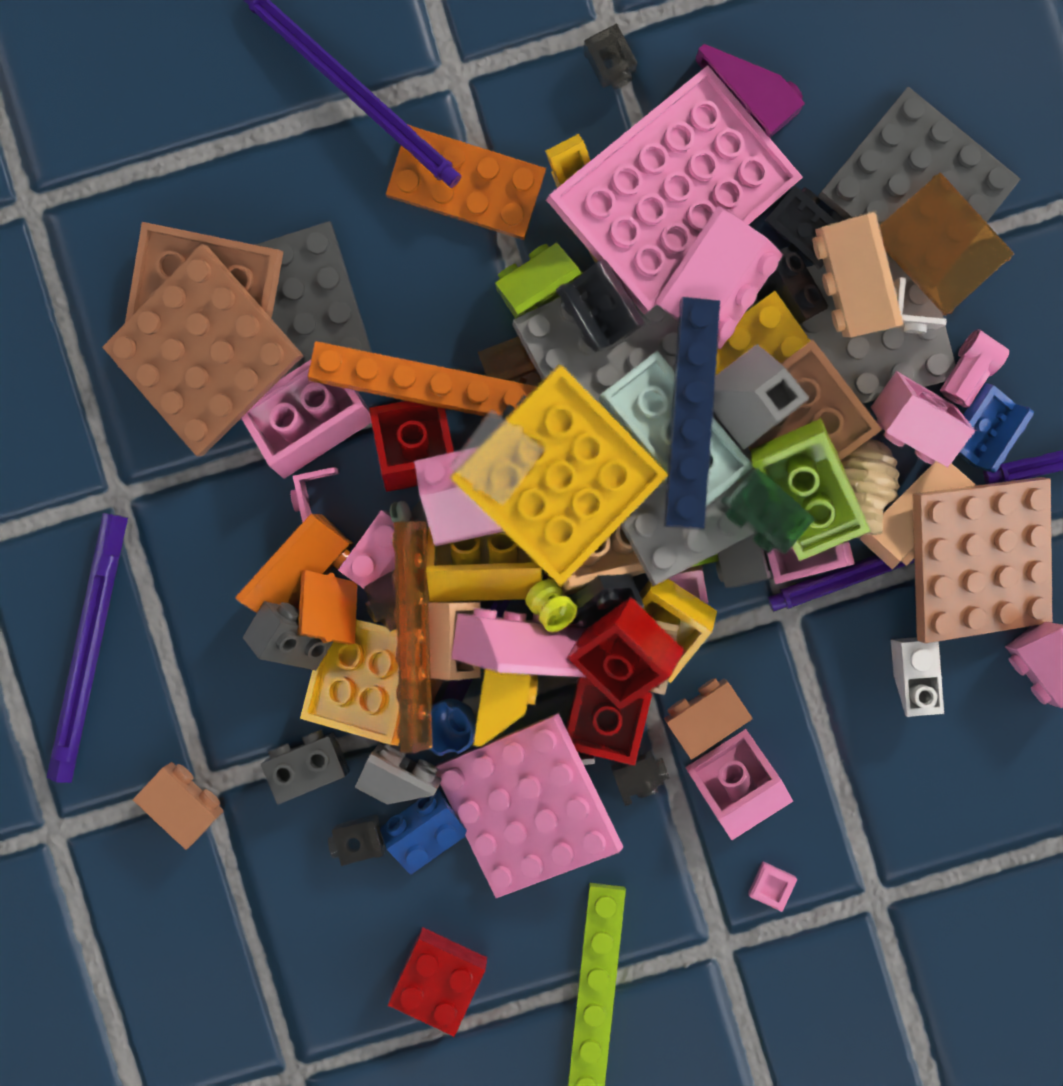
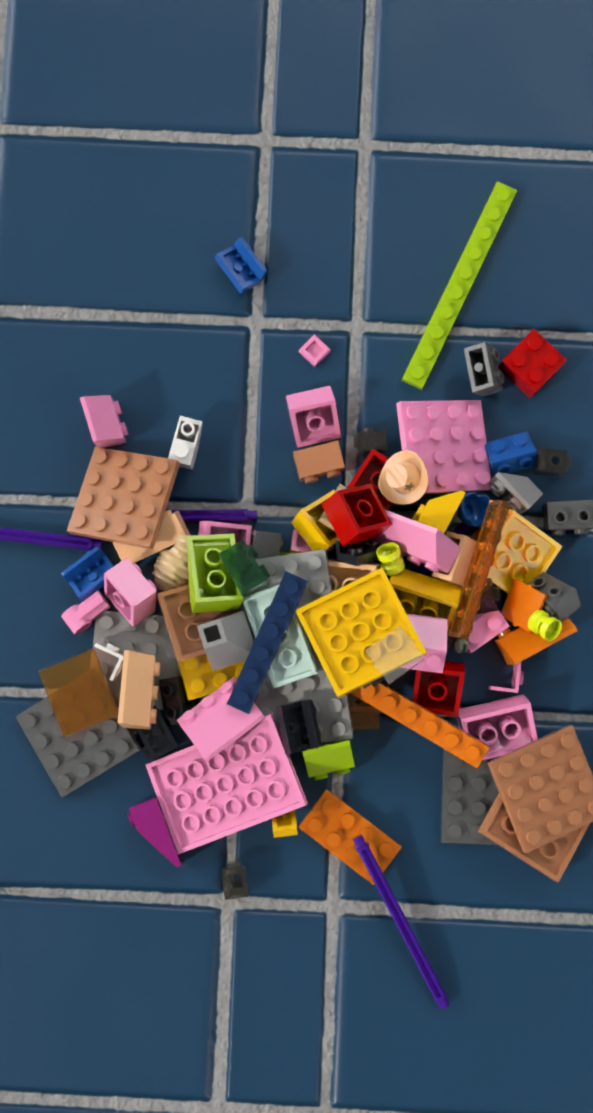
camera: 160 degrees left, 5 degrees down
(281, 586) = (543, 624): none -> neon yellow wheel
(508, 947) = (484, 369): none -> dark grey brick
(573, 735) = (403, 478): none -> light nougat hat
(931, 979) = (241, 265): none -> blue bracket

